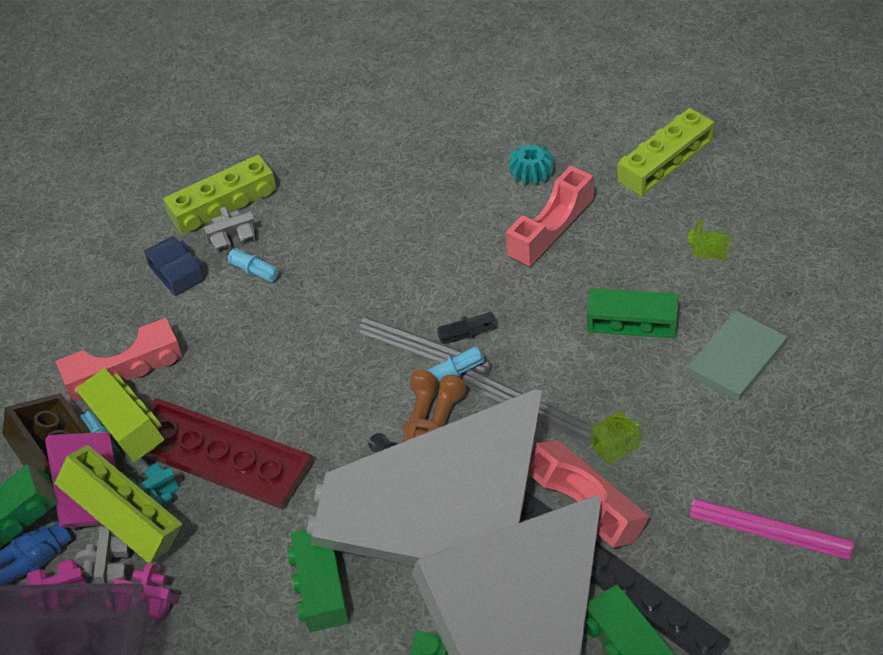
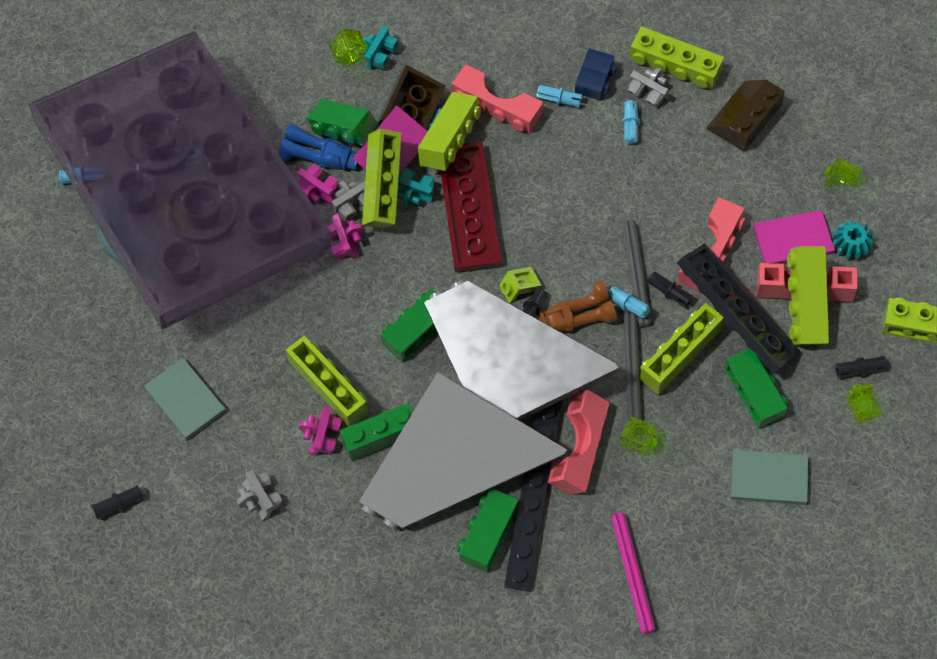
camera: 55 degrees right, 15 degrees up
(169, 306) = (559, 96): none -> medium azure axle
(328, 173) = (747, 112): none -> dark brown slope
(349, 448) = (519, 282): none -> lime bracket
(456, 135) = (844, 171): none -> clear neon green bracket
(464, 290) = (723, 222): none -> coral arch
(490, 208) = (781, 234): none -> dark pink tile
(532, 273) = (738, 307): none -> black plate
(544, 348) = (681, 348): none -> lime brick
(571, 214) = (808, 295): none -> lime brick
(668, 224) = (861, 366): none -> black pin

